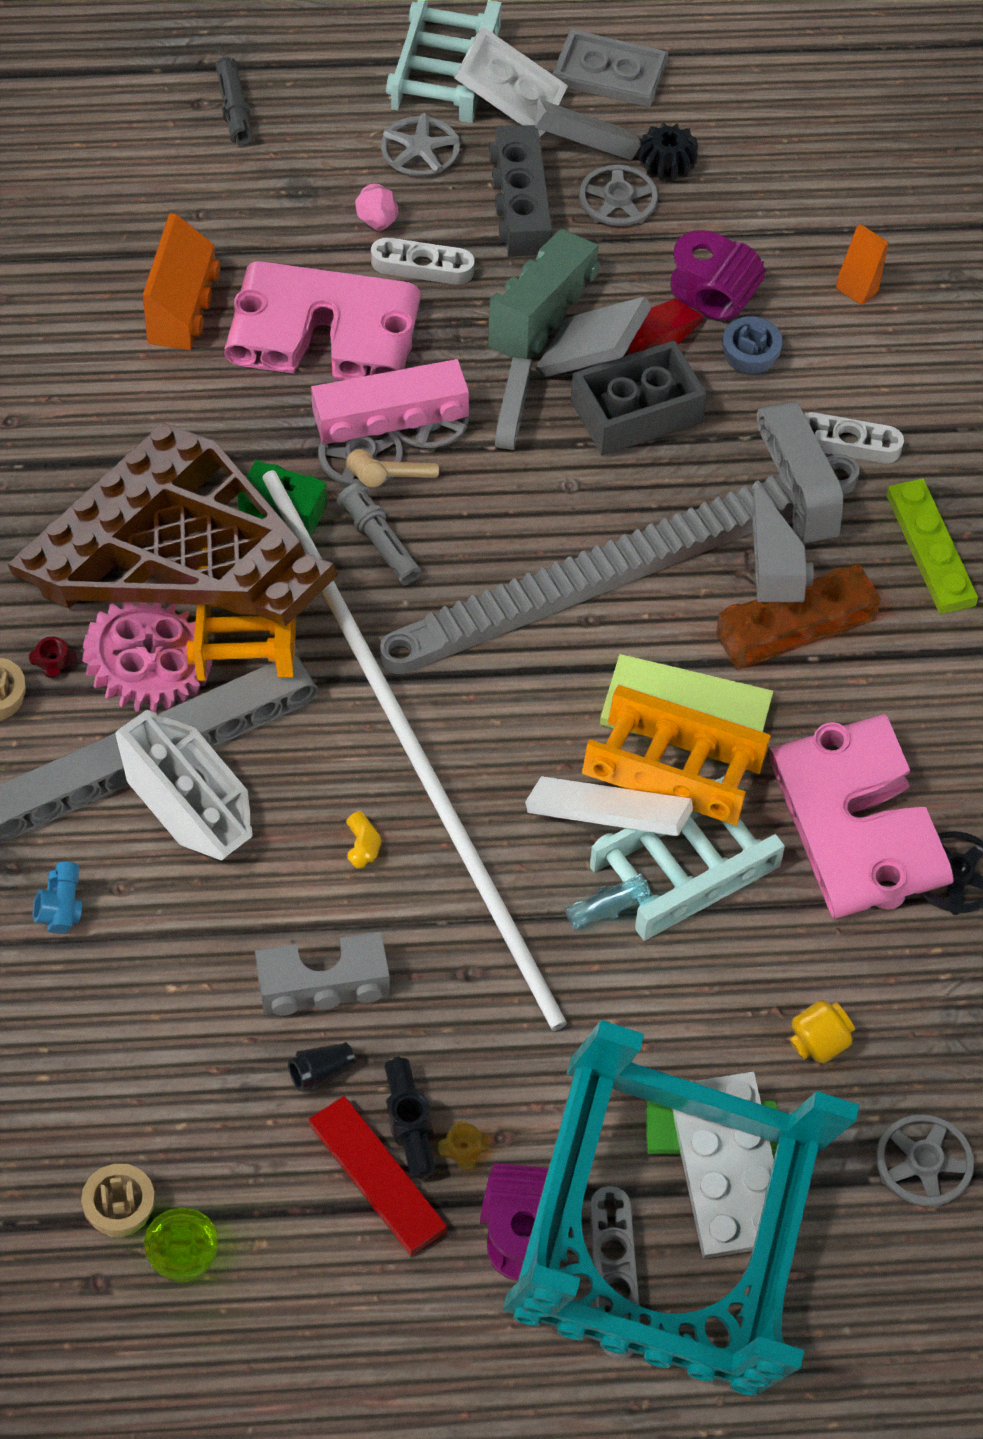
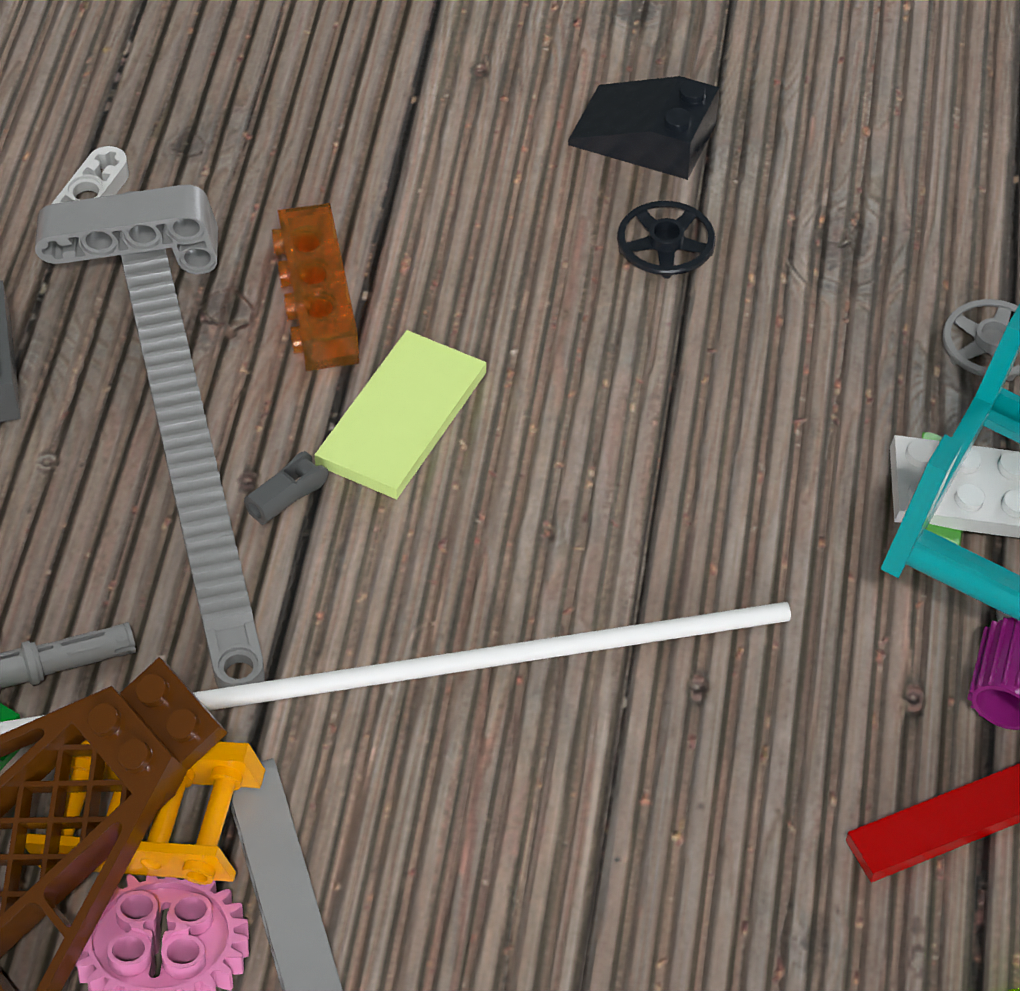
camera: 75 degrees left, 5 degrees down
(185, 784) = (401, 916): white wedge -> none
(291, 986) = (686, 862): light grey arch -> none
(320, 1065) = (805, 851): black cone -> none
(366, 843) = (499, 749): yellow arm -> none
(411, 1135) = (892, 753): black axle -> none
(464, 1133) = (929, 716): clear yellow plate -> none
(578, 640) = (283, 490): none -> dark grey bar
(608, 902) = (651, 525): clear light blue pin -> none
(609, 806) = (531, 495): white tile -> none
(686, 729) = (466, 386): light orange fence -> none
(689, 893) = (634, 419): light aqua fence -> none
(778, 555) = (248, 267): light grey slope -> none
(822, 1032) = (844, 379): yellow head -> none
(849, 851) = (555, 317): bright pink connector -> none
(931, 546) = (255, 162): lime plate -> none

